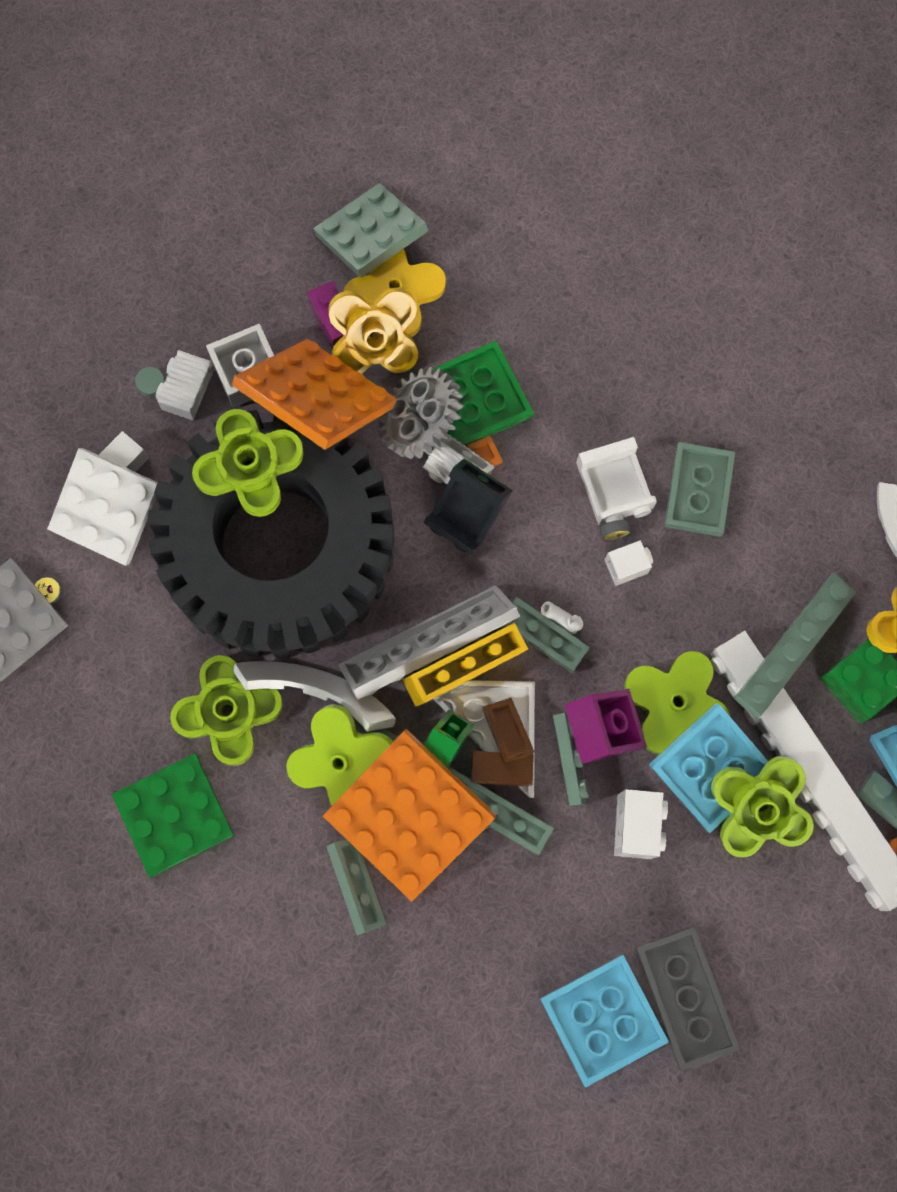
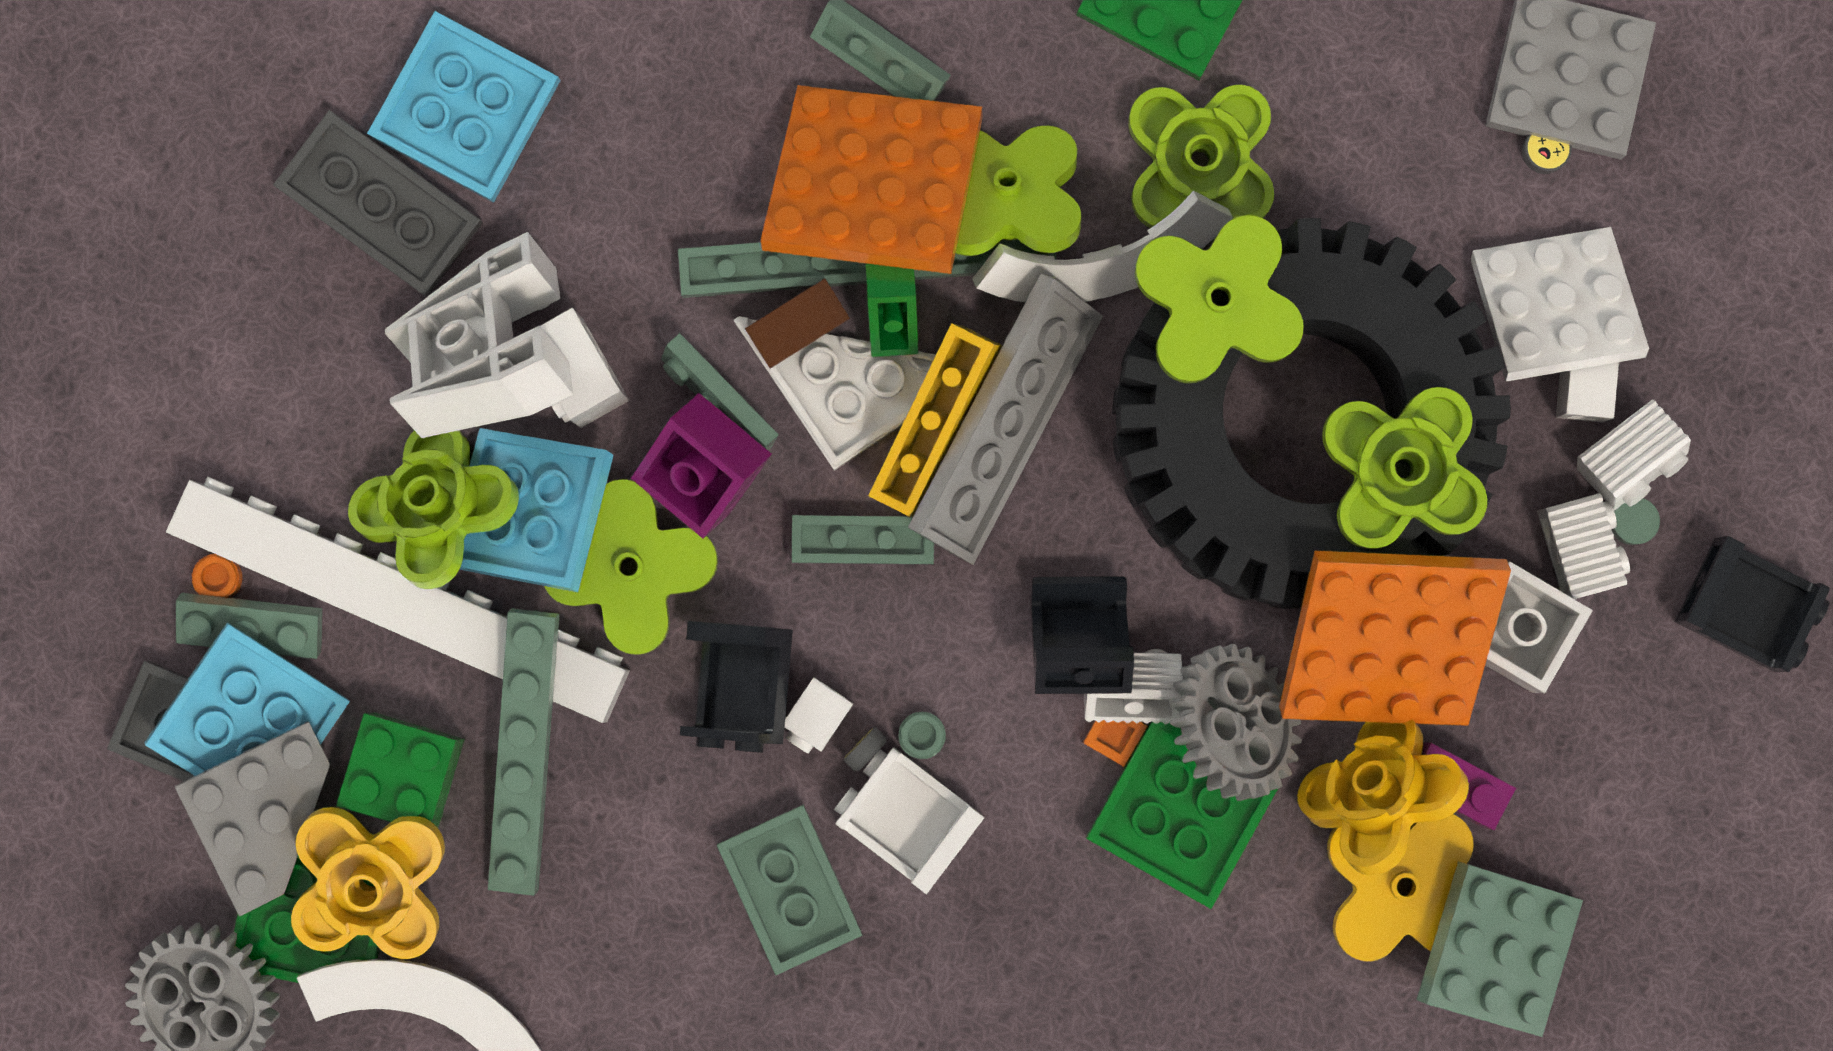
camera: 145 degrees right, 10 degrees up
(125, 303) = (1753, 606): none -> black panel
(125, 409) = (1634, 456): none -> white brick
(288, 630) = (1198, 330): none -> lime plant
(508, 730) = (823, 376): reddish brown tile -> none
(562, 618) = (854, 580): white arm -> none
(580, 519) = (922, 735): none -> sand green tile
(659, 602) = (740, 685): none -> black panel
(693, 876) = (464, 347): none -> white wedge

